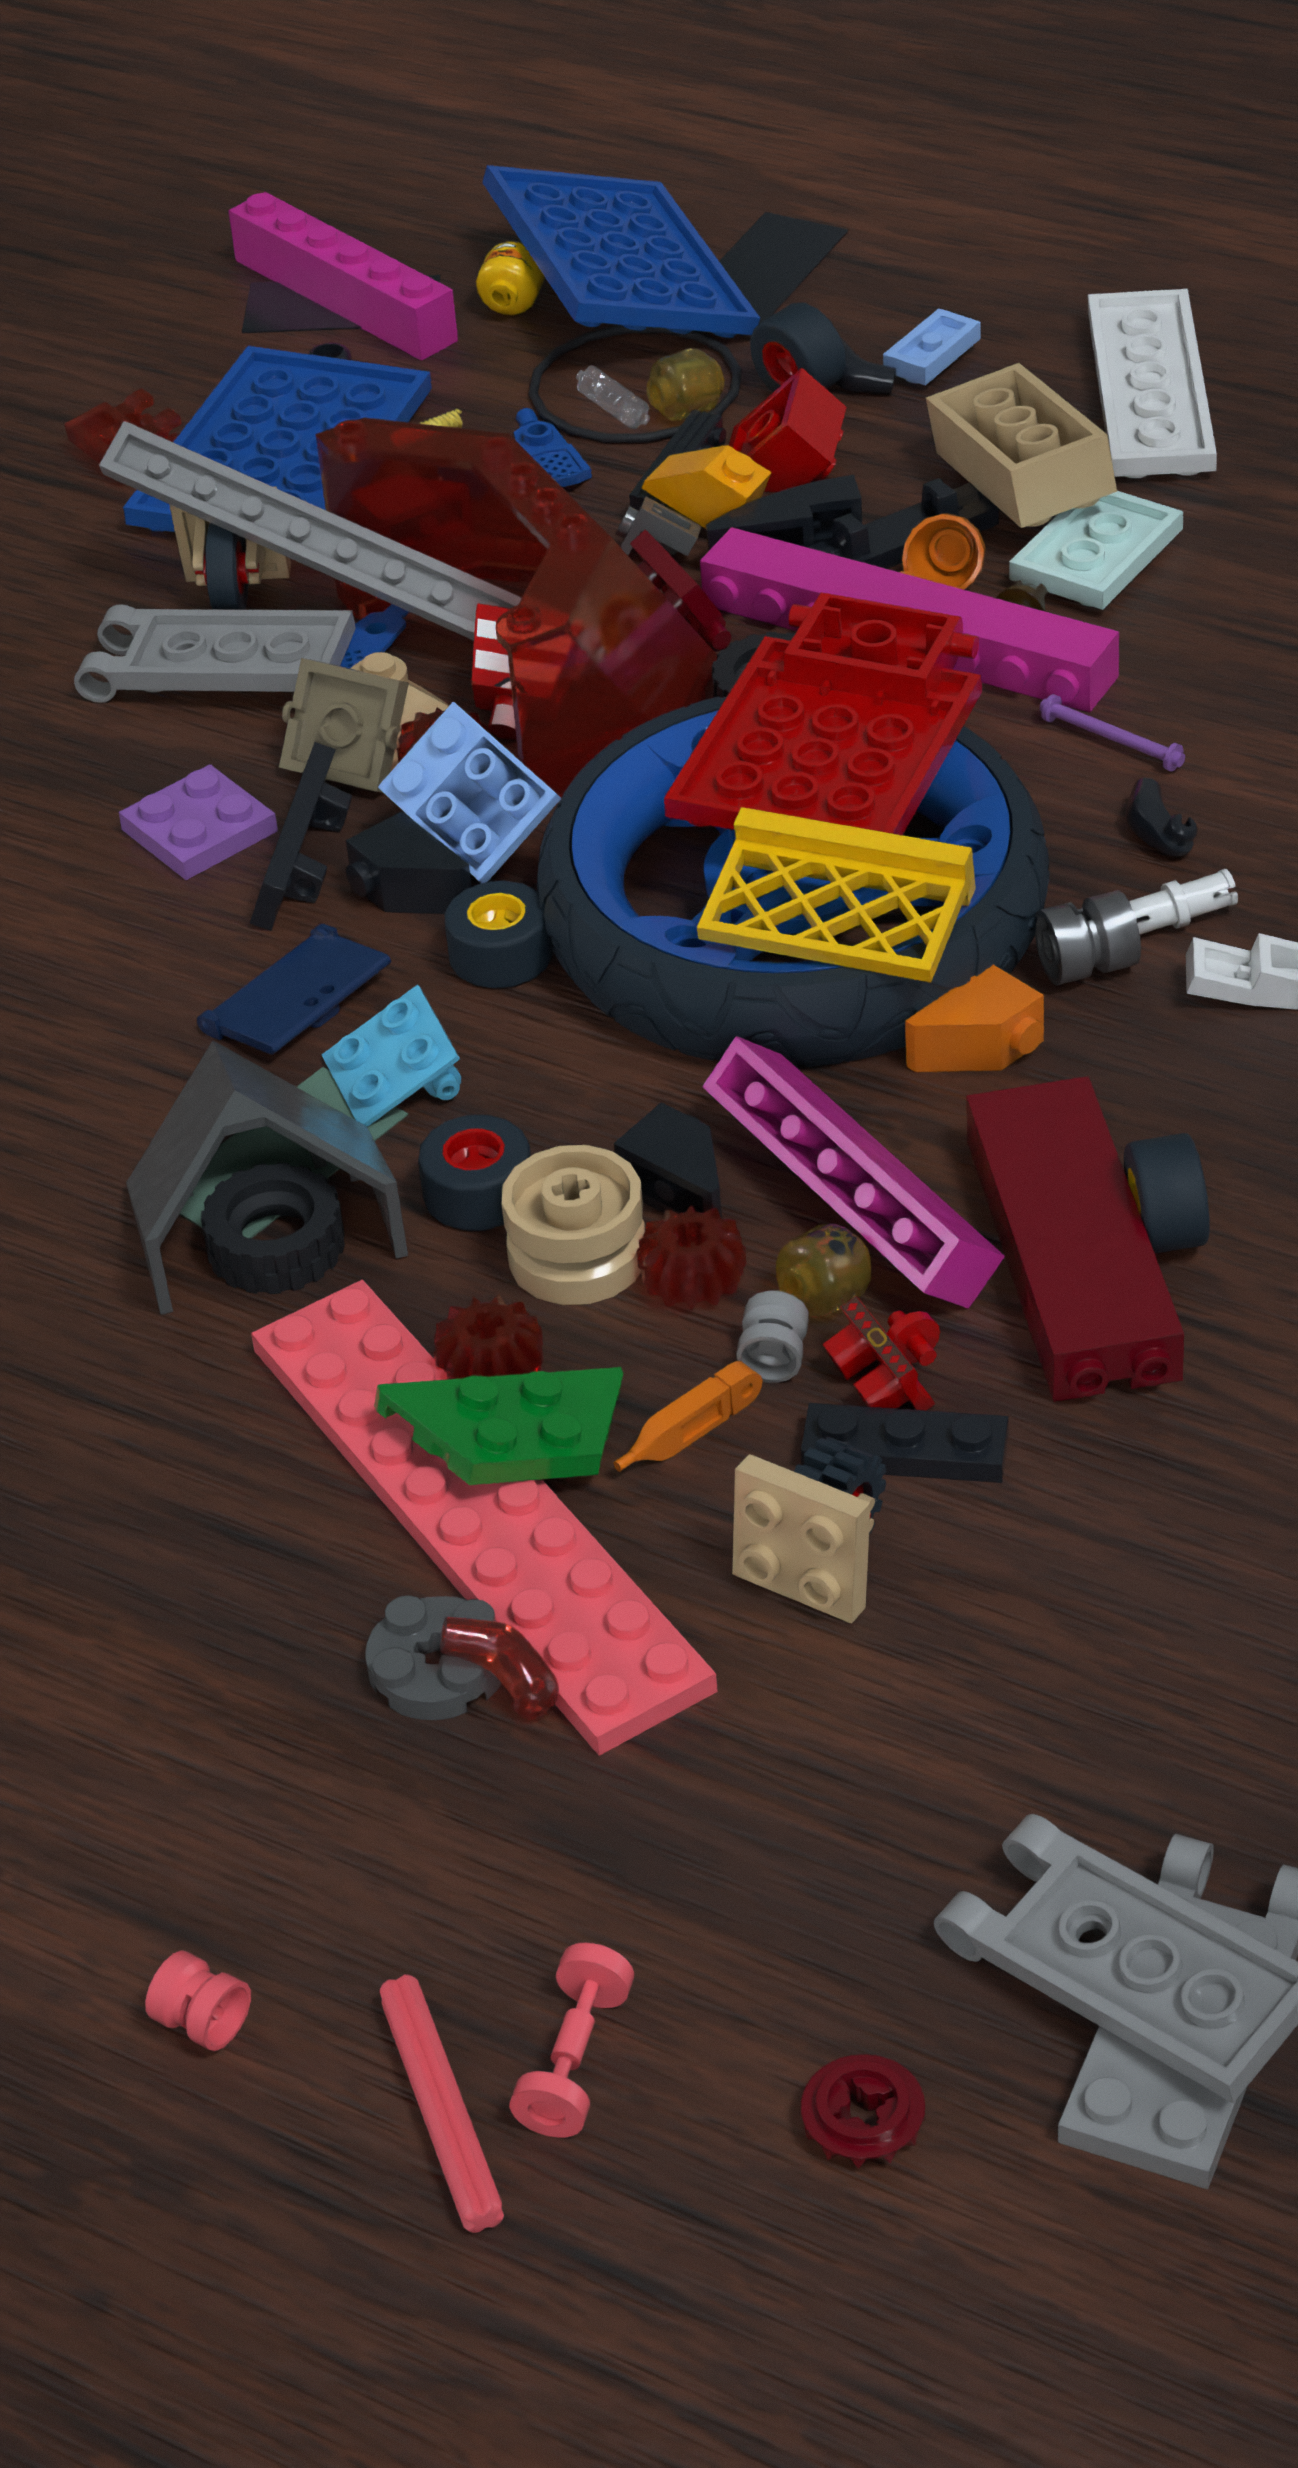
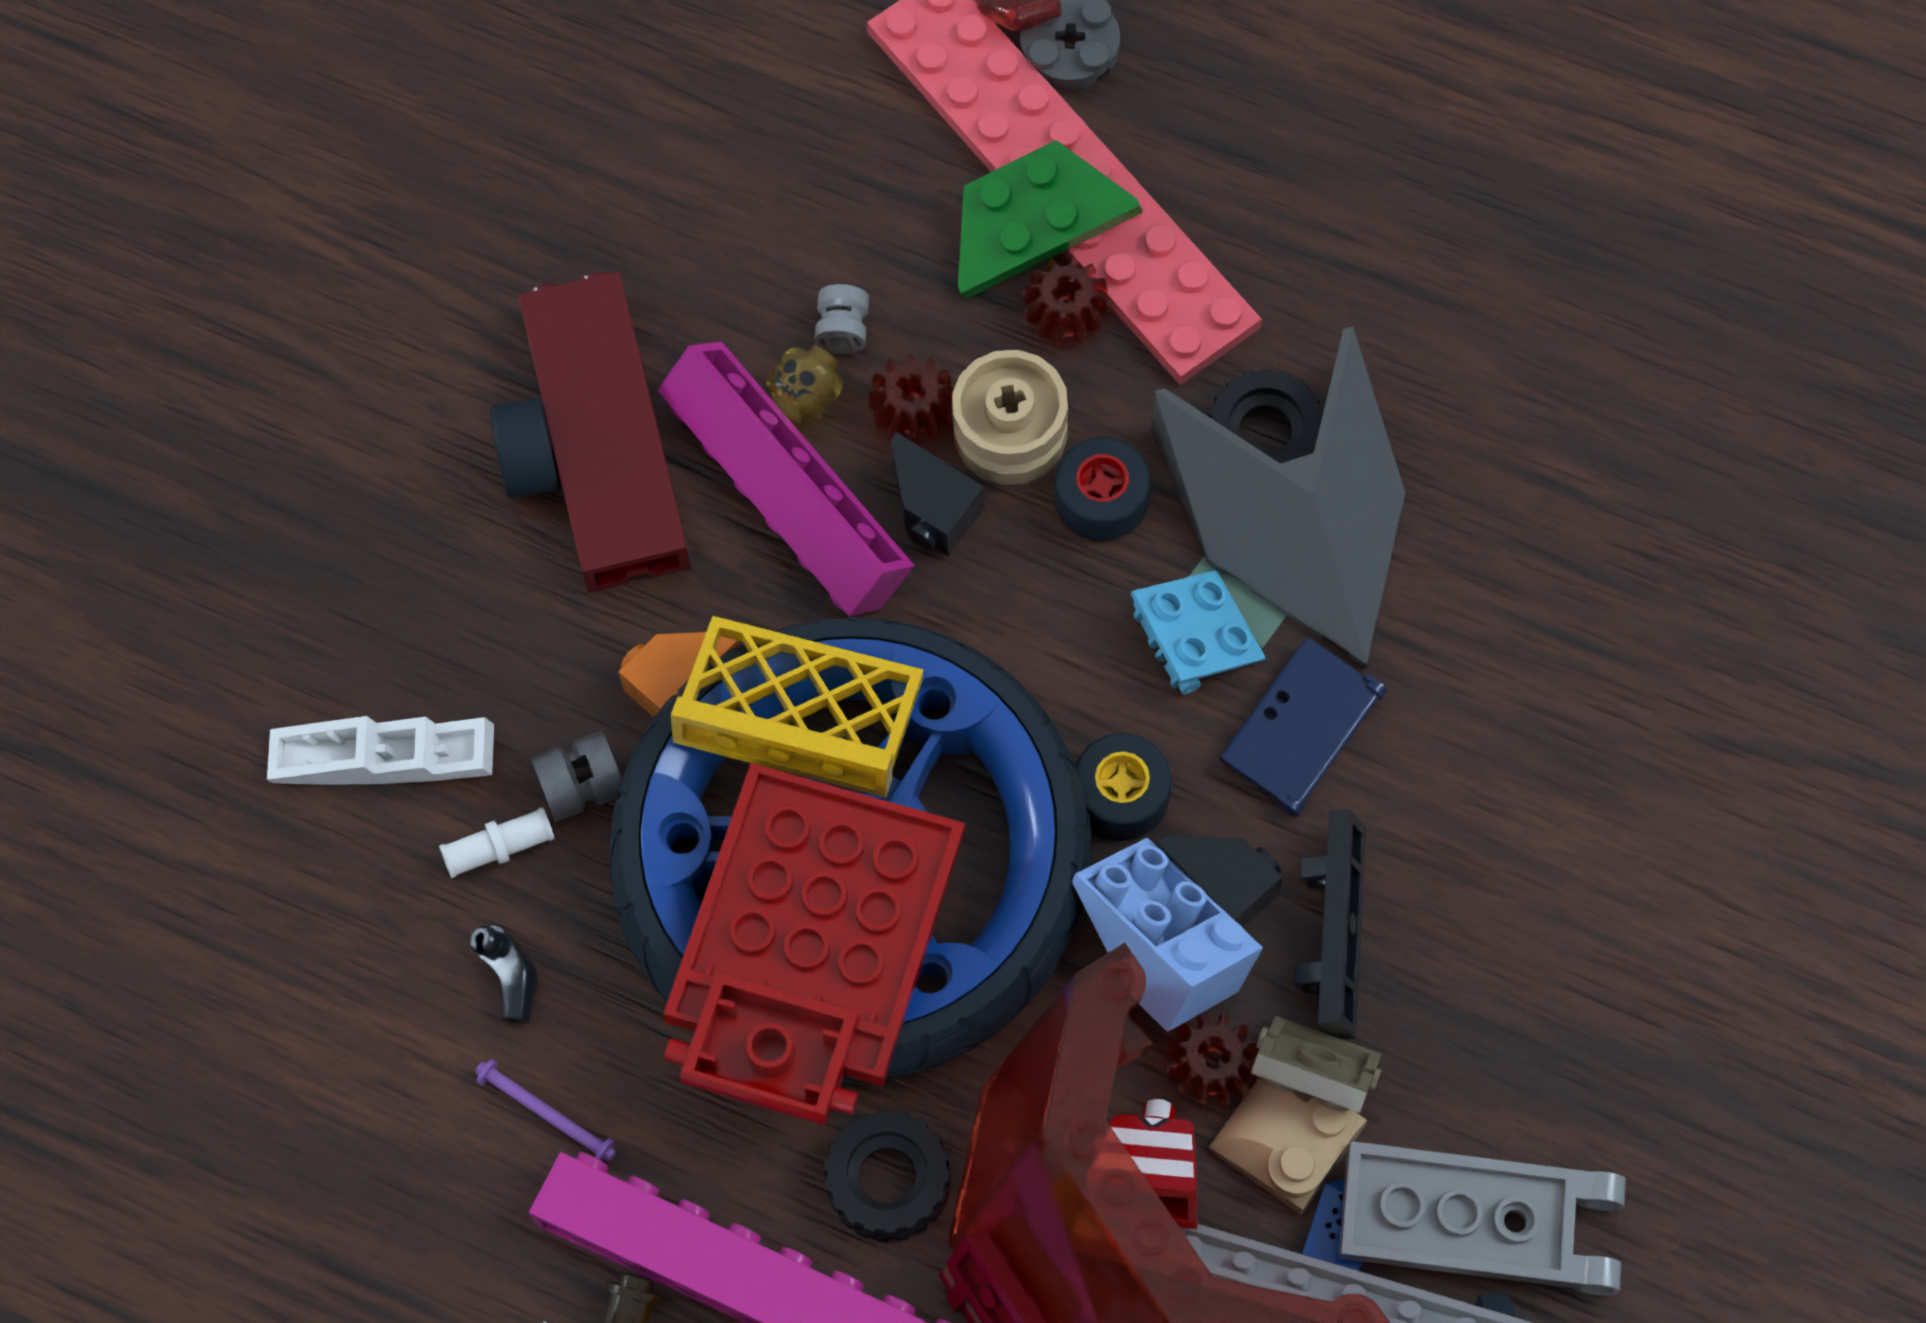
camera: 175 degrees right, 25 degrees up
(198, 821) = (1447, 972): medium lavender plate -> none
(694, 1414) = (901, 251): orange piece -> none
(809, 1526) = (797, 114): tan plate -> none
(906, 1342) = (748, 305): red hips -> none
(916, 1440) = (737, 239): black plate -> none

